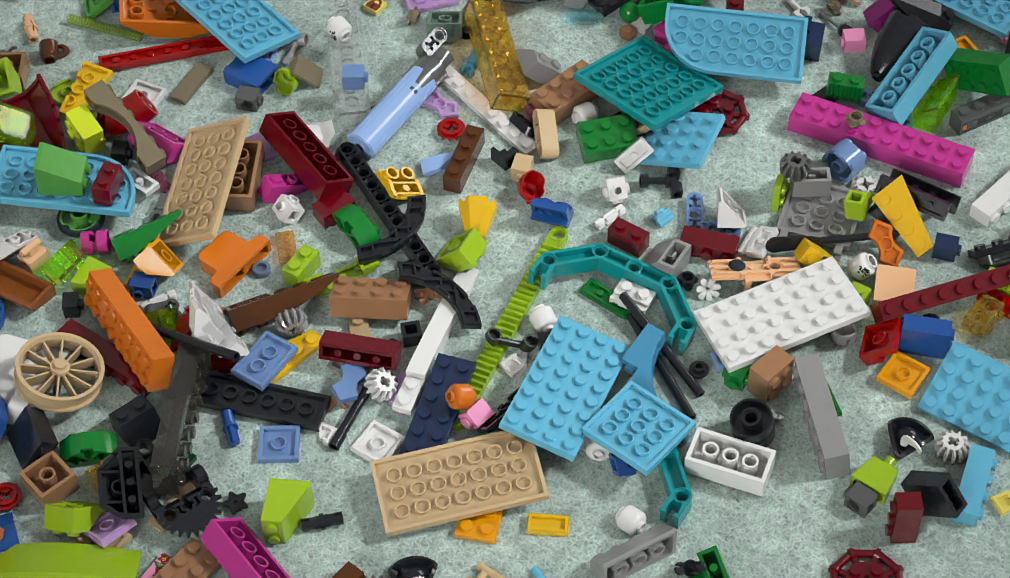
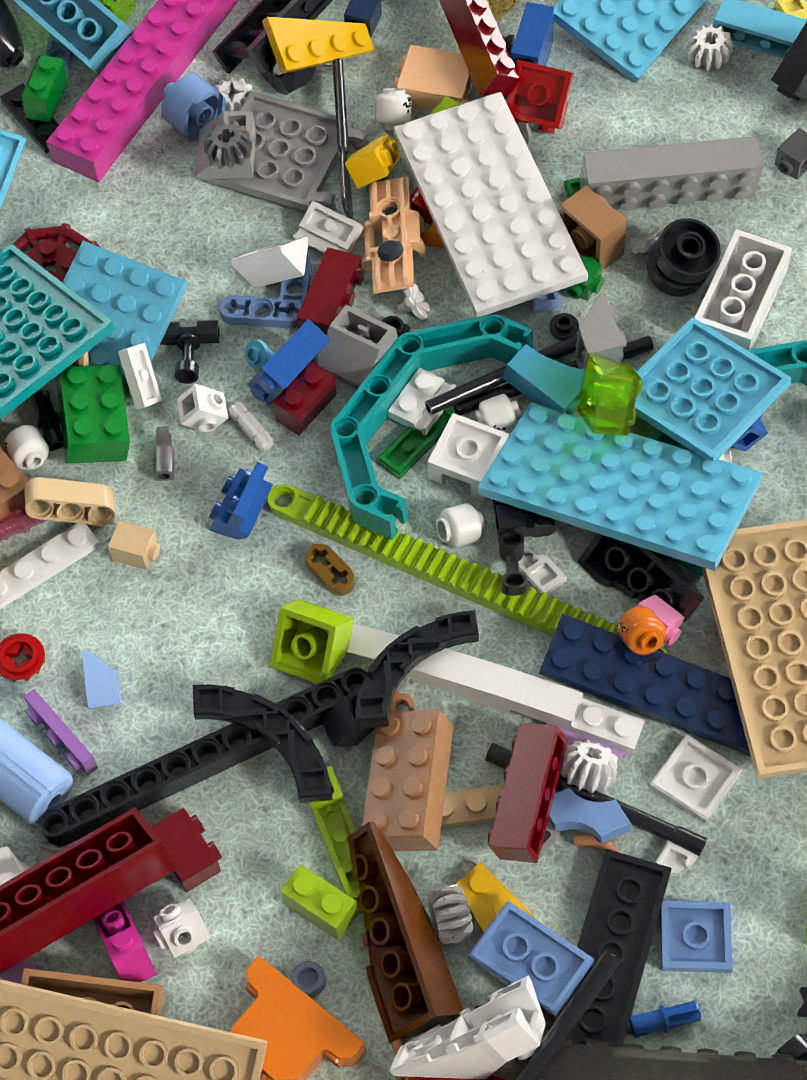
camera: 85 degrees left, 10 degrees up
(285, 245) = (260, 936): clear orange tile -> none
(356, 225) = (238, 807): green brick -> none
(399, 183) = (145, 735): yellow slope -> none
(404, 149) = (59, 733): none -> medium lavender plate
(411, 333) = (476, 712): black plate -> none
(463, 159) = (101, 633): reddish brown brick -> none
(477, 213) = (241, 613): yellow cone -> none
(503, 158) = (103, 573): black panel -> none
(511, 260) = (324, 573): none -> pearl gold beam
(522, 124) = (32, 541): black beam -> none
(531, 185) = (181, 533): red hair -> none
(586, 177) = (163, 455): none -> flat silver bar
(594, 313) = (465, 452): none -> white panel
(622, 370) = (608, 395): none -> clear neon green slope
(624, 332) = (499, 413): none -> white head
(658, 225) = (288, 362): none -> blue brick
(675, 373) = (600, 333): none -> light grey slope
(779, 189) = (240, 193): lime plate -> none
(855, 119) = (125, 74): dark tan plate -> none
(857, 204) = (285, 92): lime slope -> none
(877, 476) = (768, 124): lime torso -> none
(882, 236) = (350, 75): orange tile -> none
(903, 374) = (590, 87): light orange plate -> none
(908, 436) = (694, 92): black hat -> none

